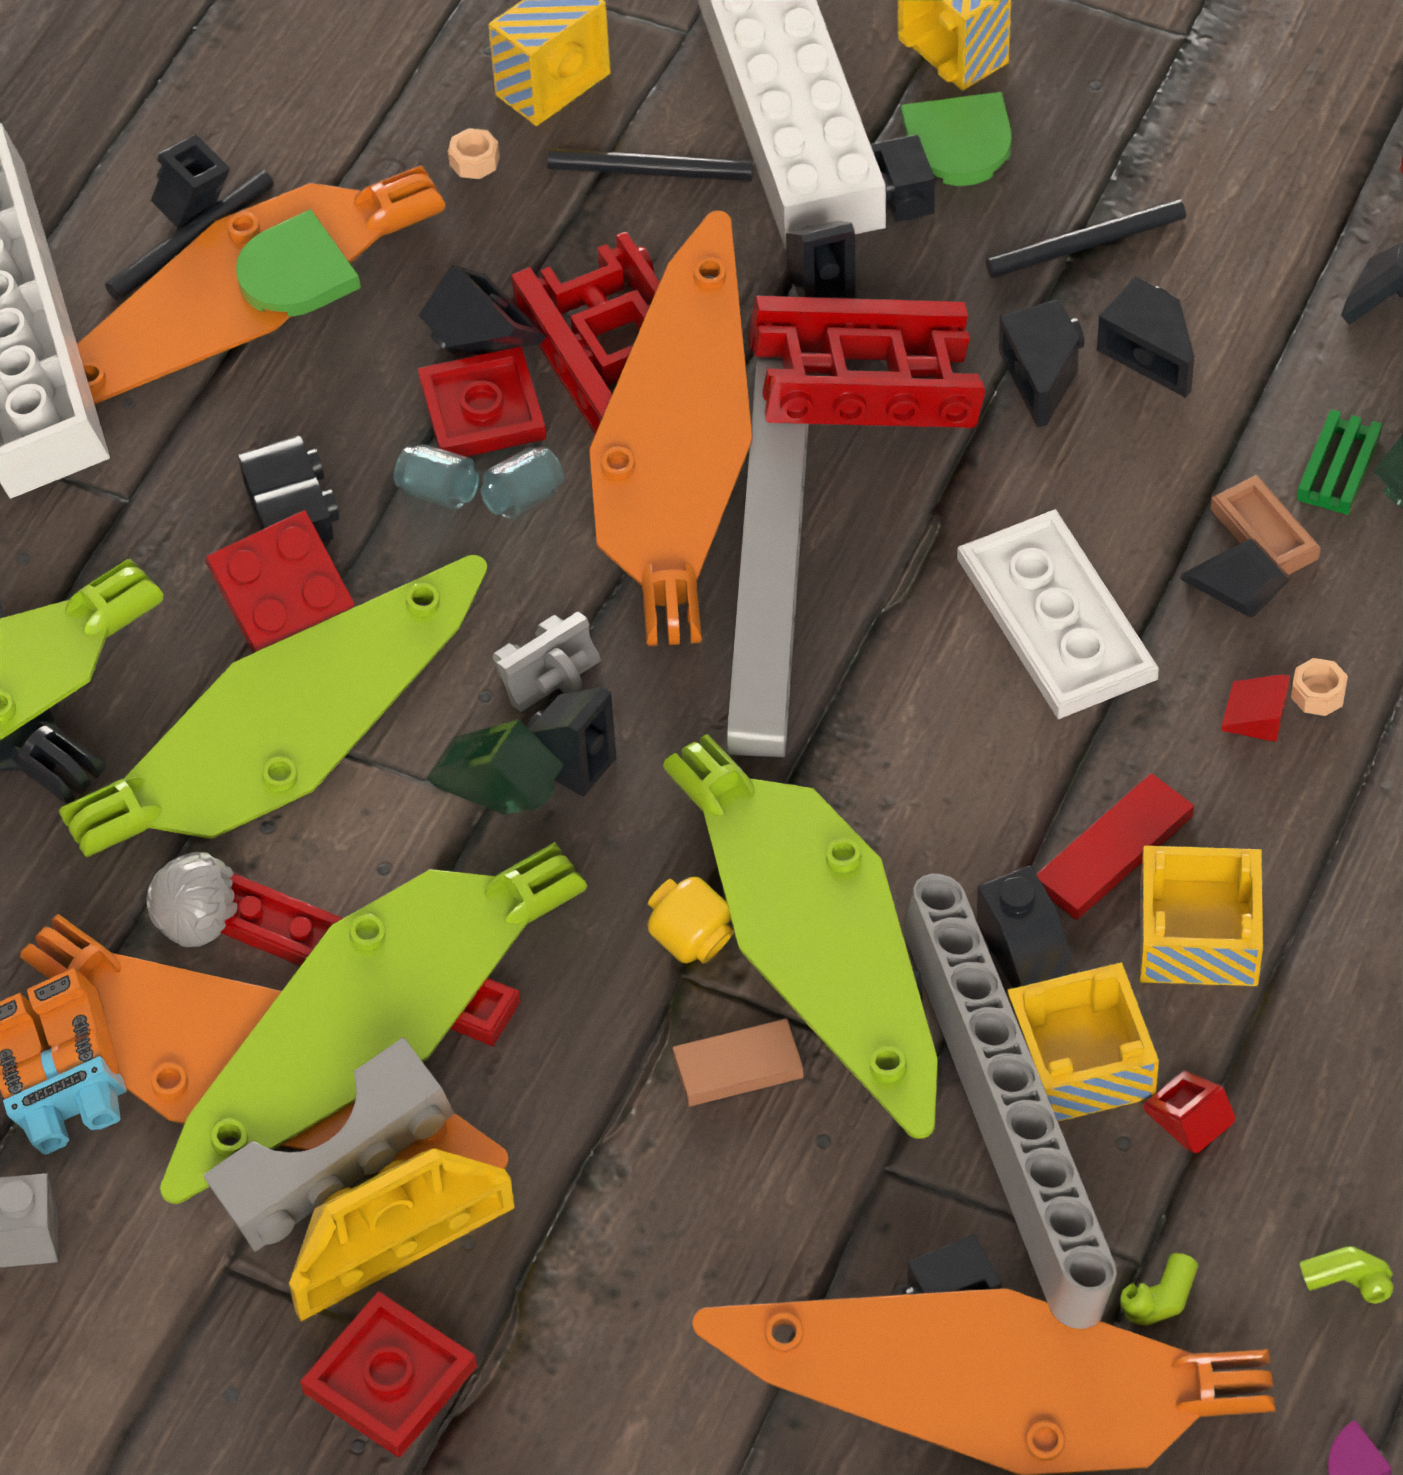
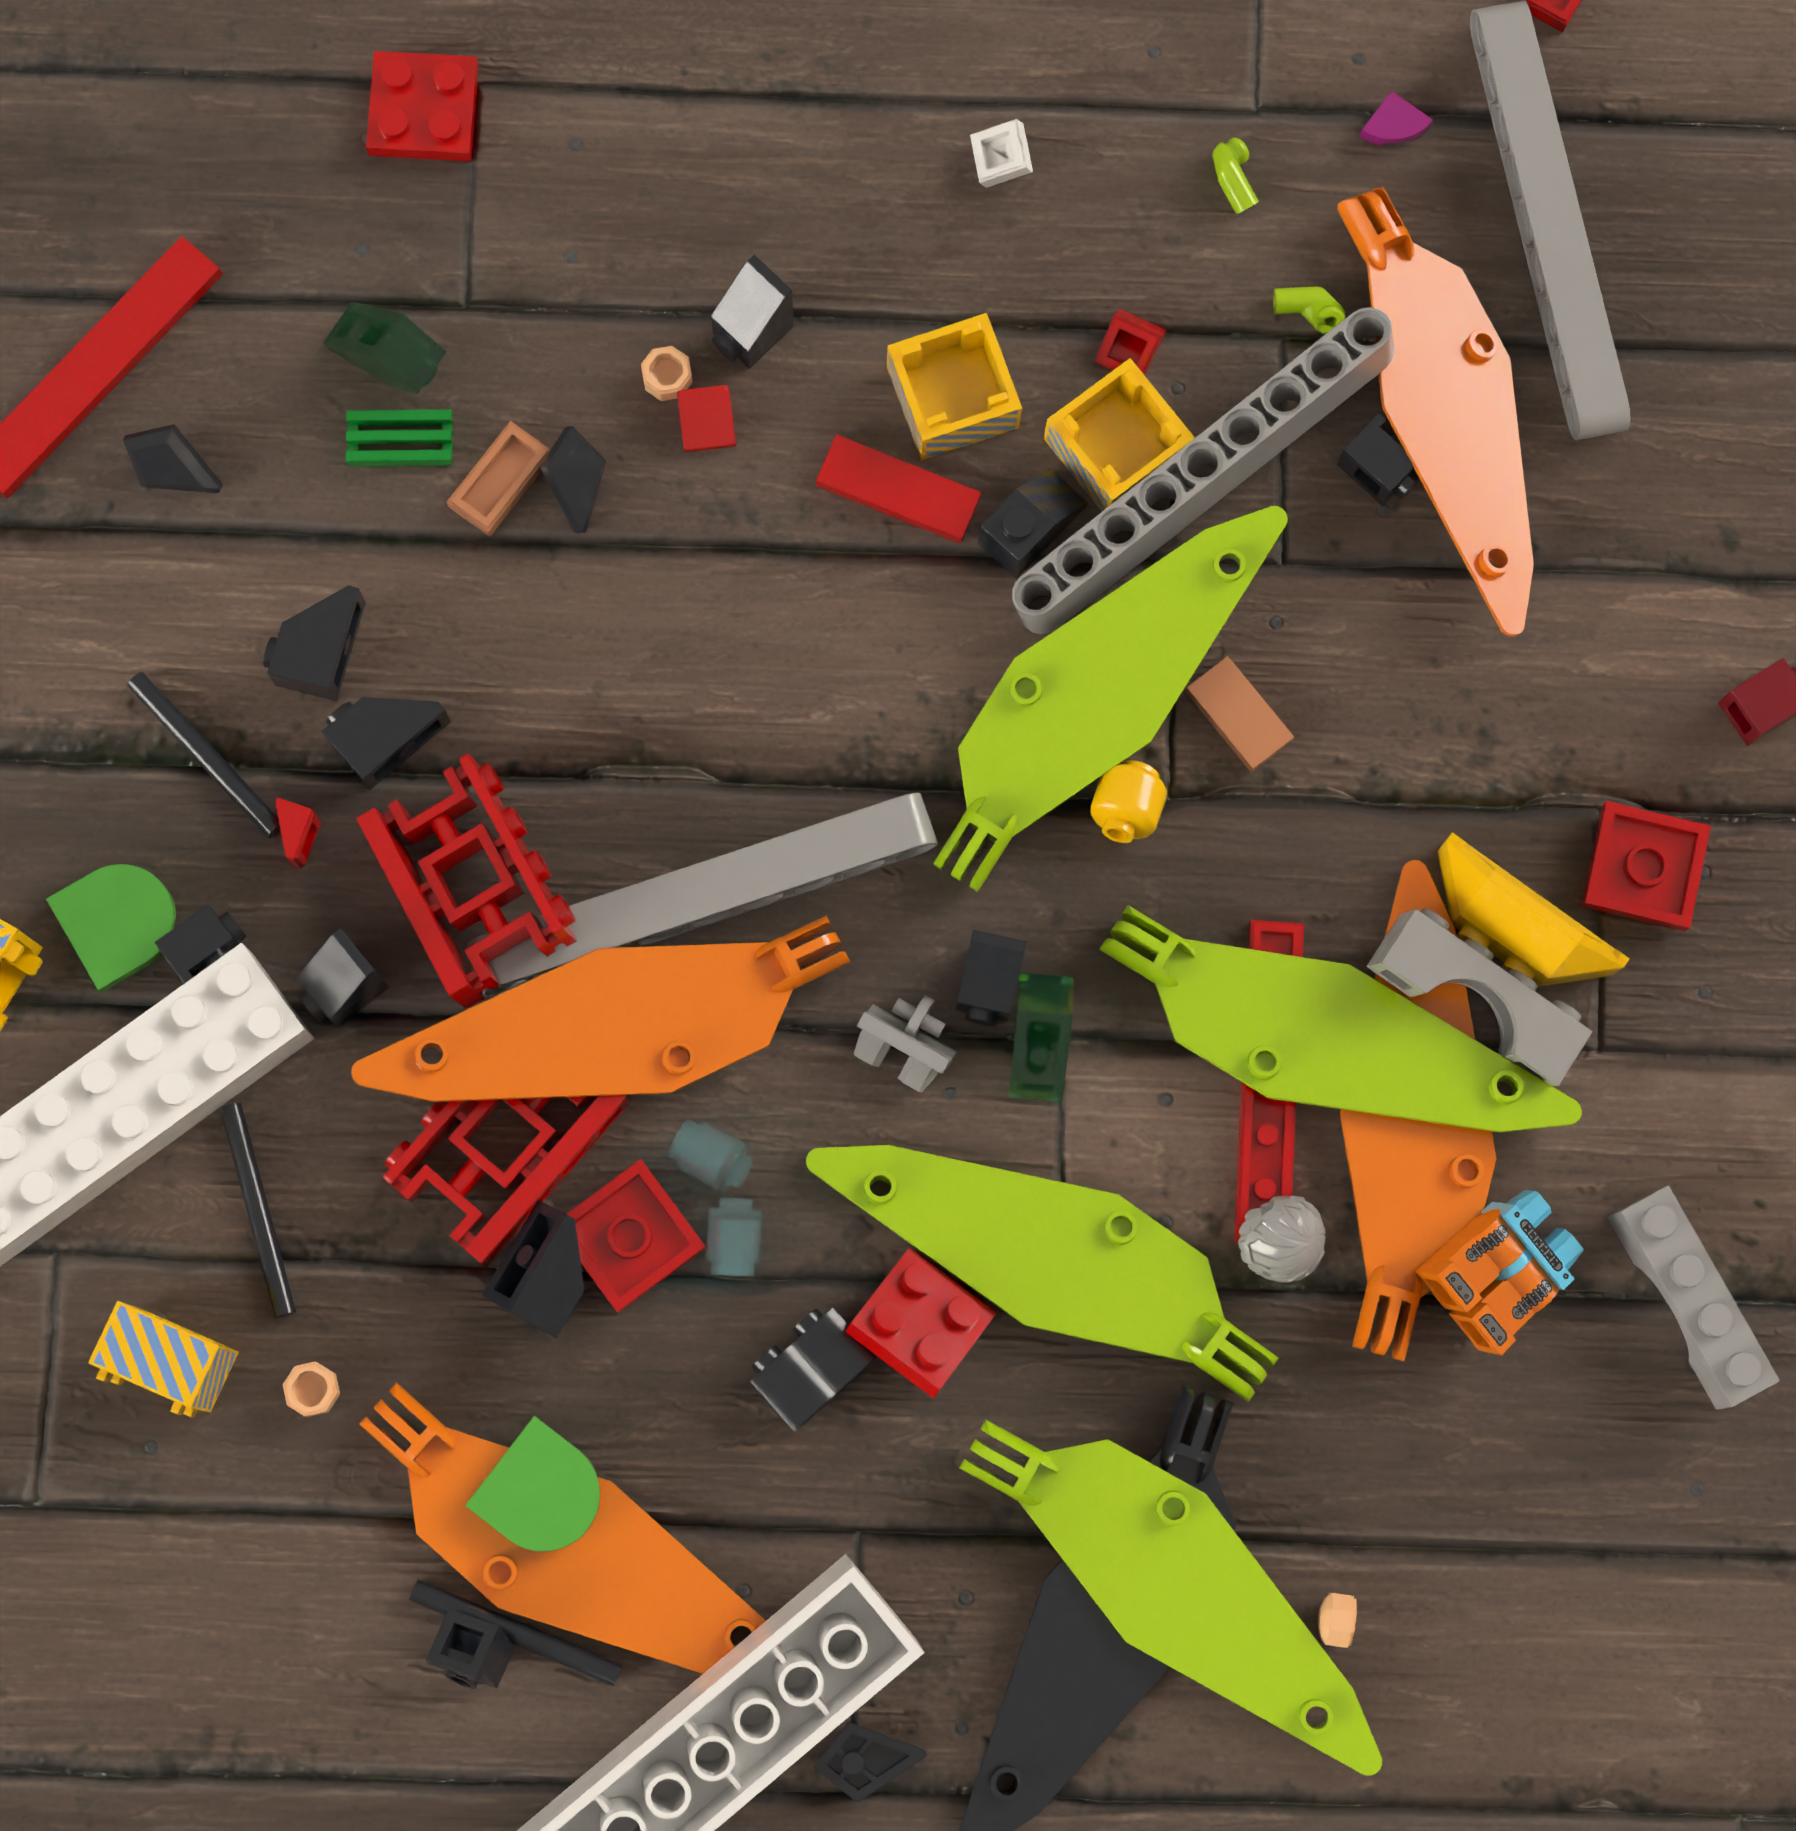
camera: 120 degrees left, 25 degrees up
(979, 271) = (298, 830): none -> red slope
(1057, 614) = (665, 625): white tile -> none
(1349, 765) = (752, 314): none -> slope

